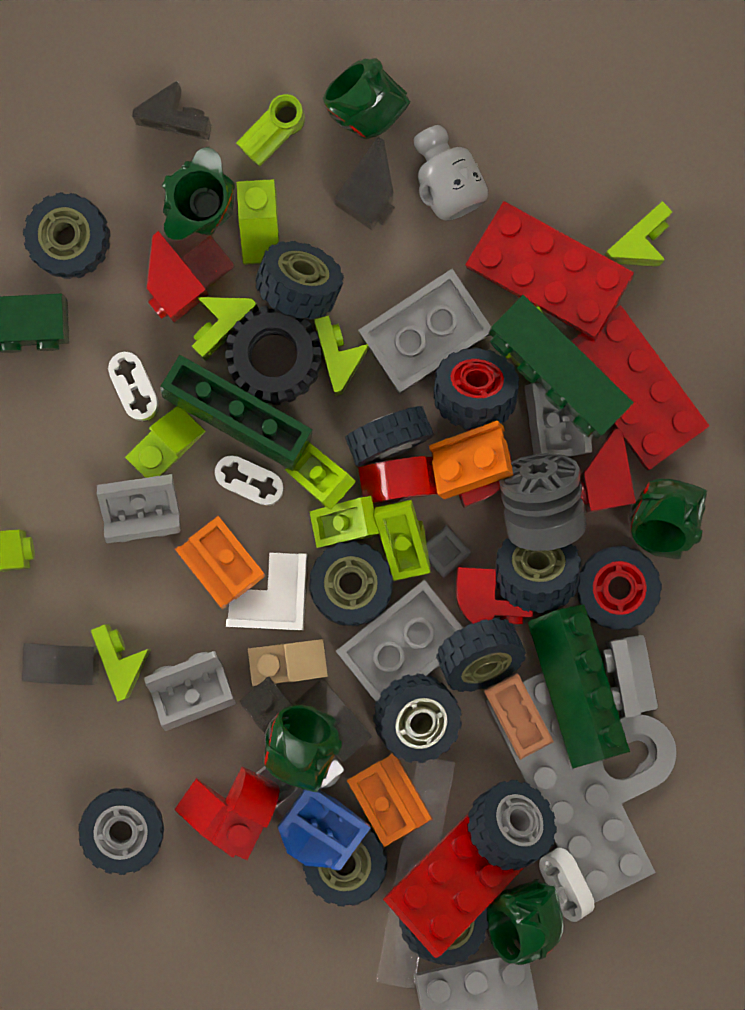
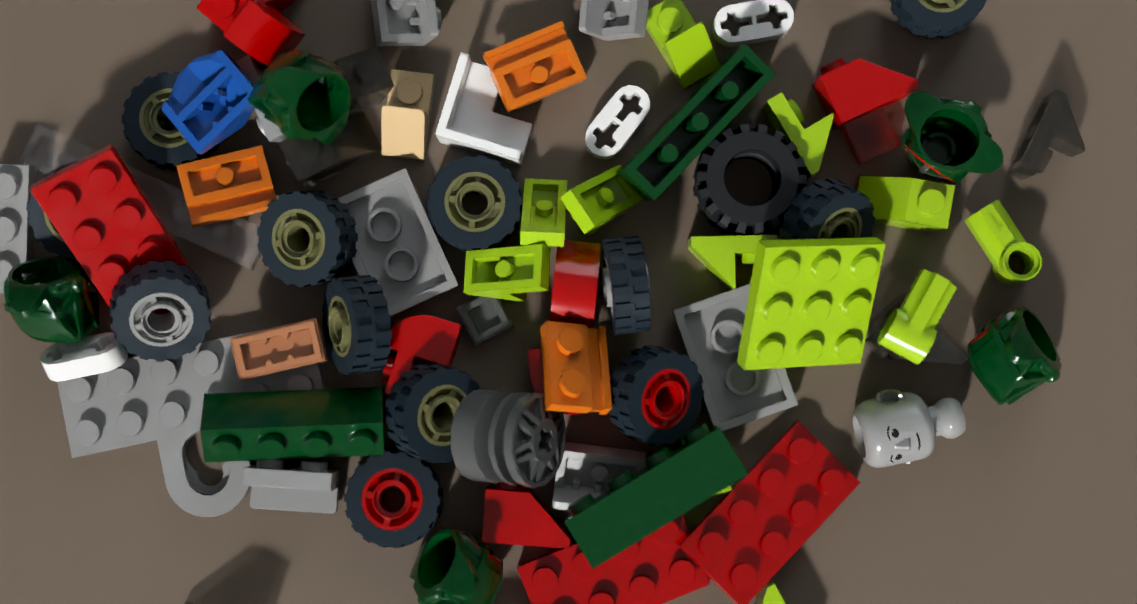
camera: 105 degrees right, 0 degrees up
(365, 189) = (912, 327): none -> lime piece
(366, 278) = (810, 302): none -> lime plate

